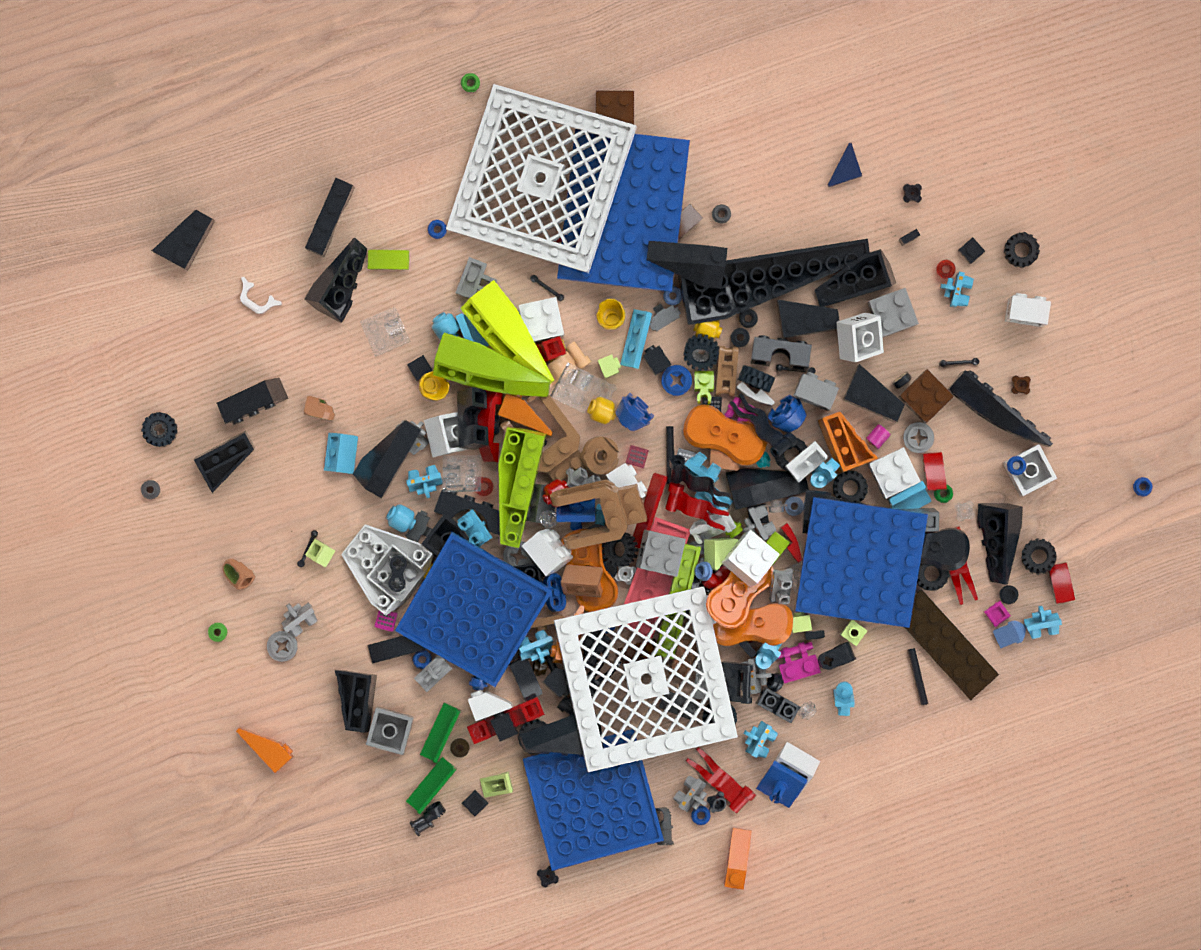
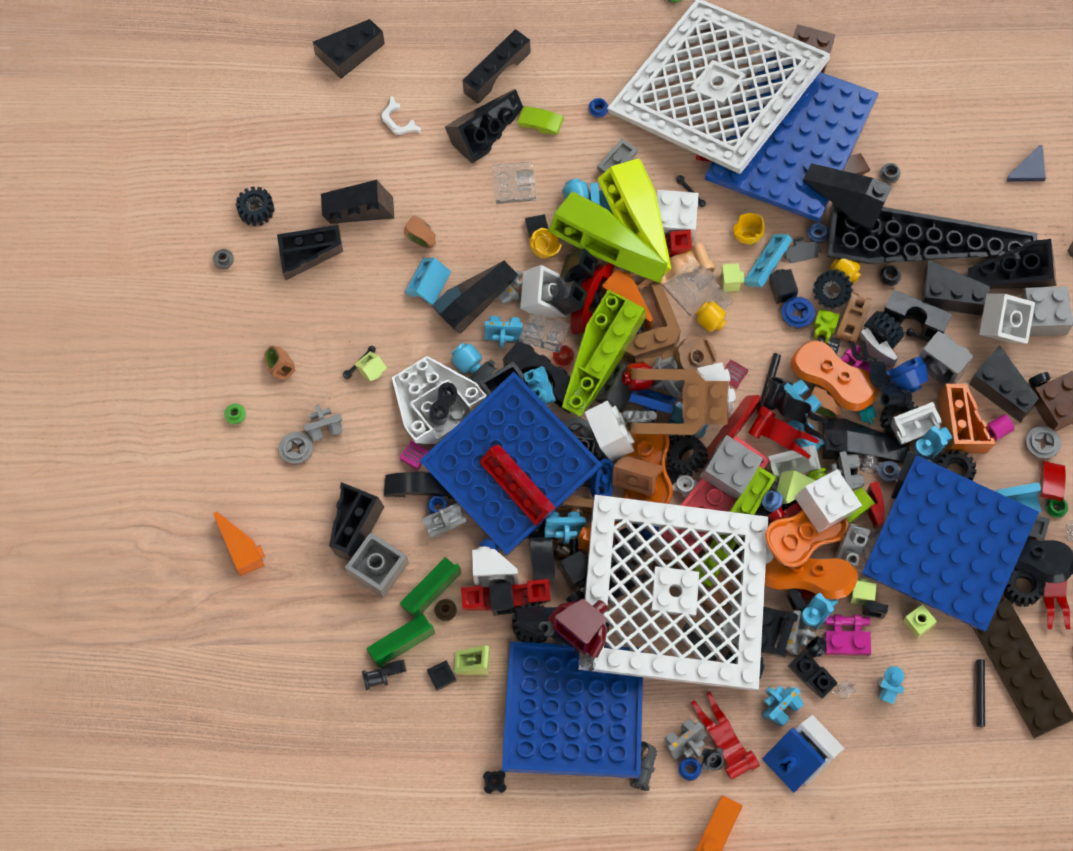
camera: 15 degrees right, 20 degrees down
(485, 628) = (517, 484): none -> red slope
(545, 516) = (617, 400): clear plate -> none
(569, 531) = (639, 415): none -> light grey gear
(580, 742) = (580, 626): none -> torso
(633, 413) = (743, 326): blue cone -> none
(744, 332) = (876, 296): black plate -> none
(840, 655) = (897, 641): black piece -> none
(894, 473) = (1007, 465): white brick -> none

